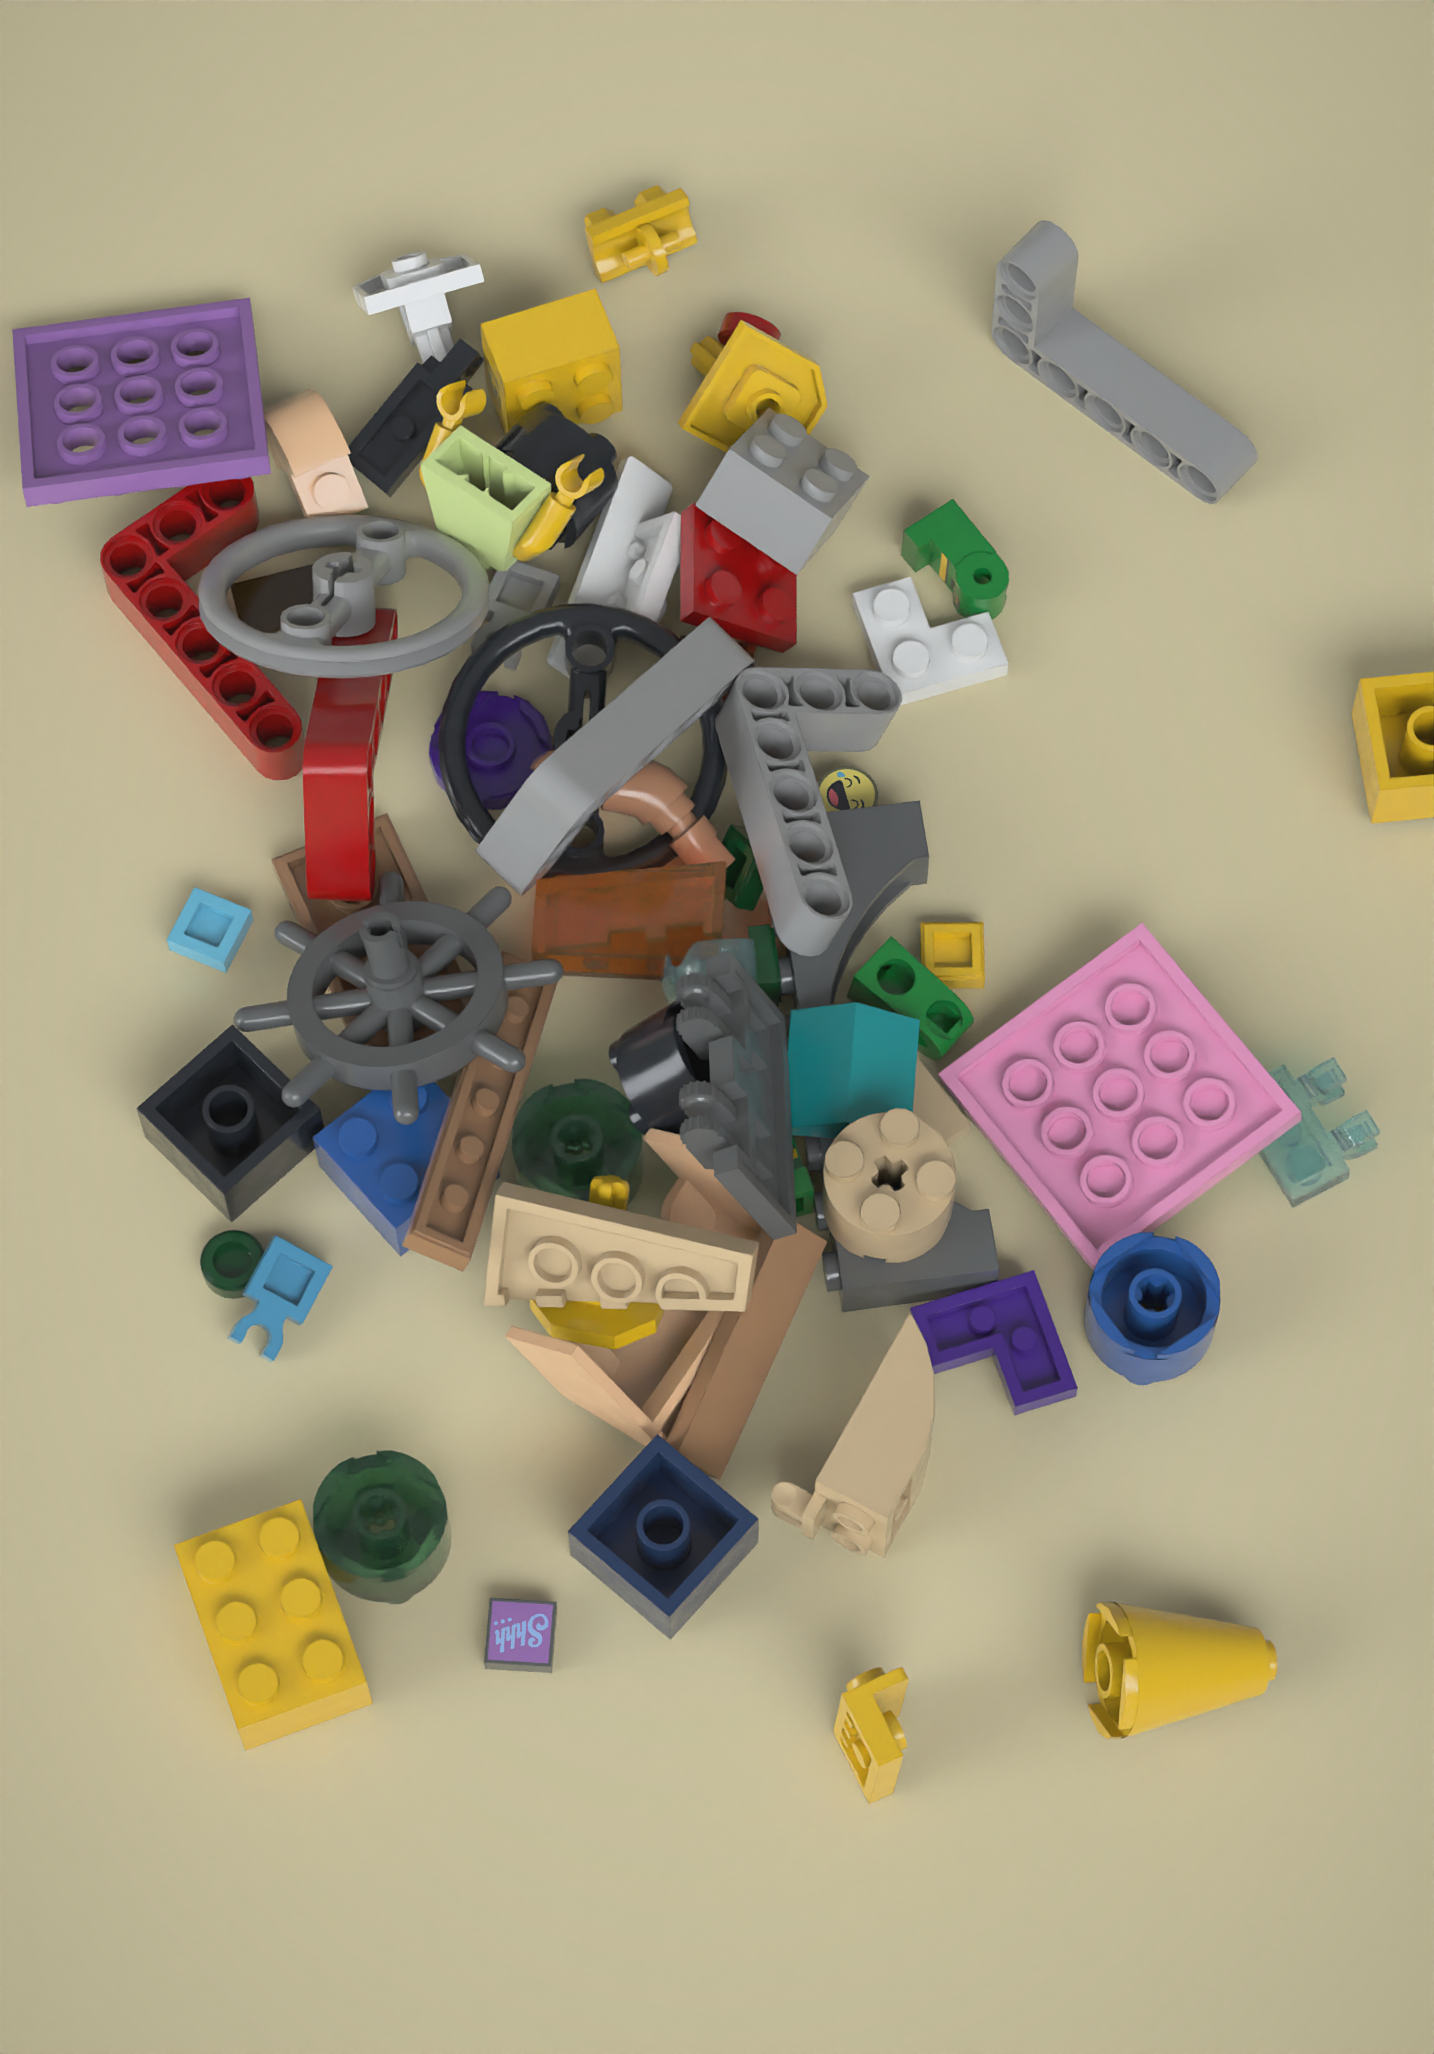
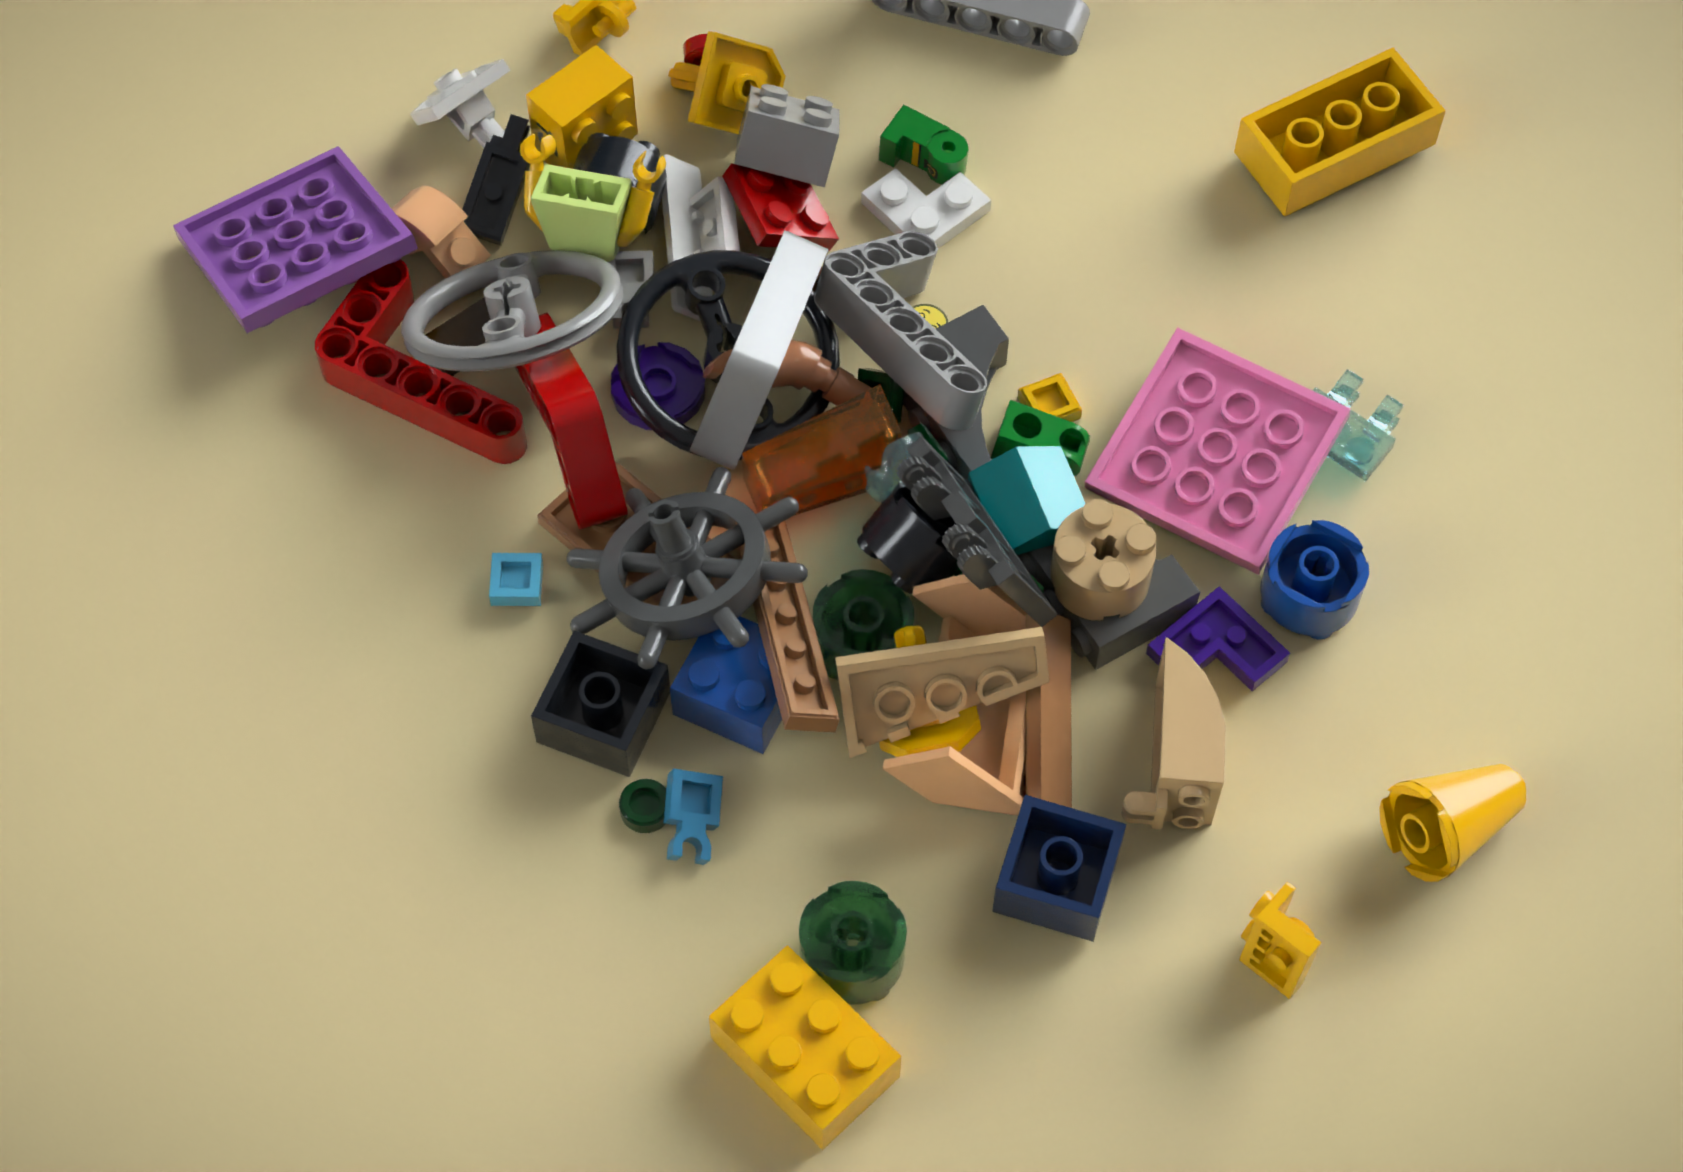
camera: 25 degrees left, 5 degrees down
(520, 1635) = (985, 982): tile -> none

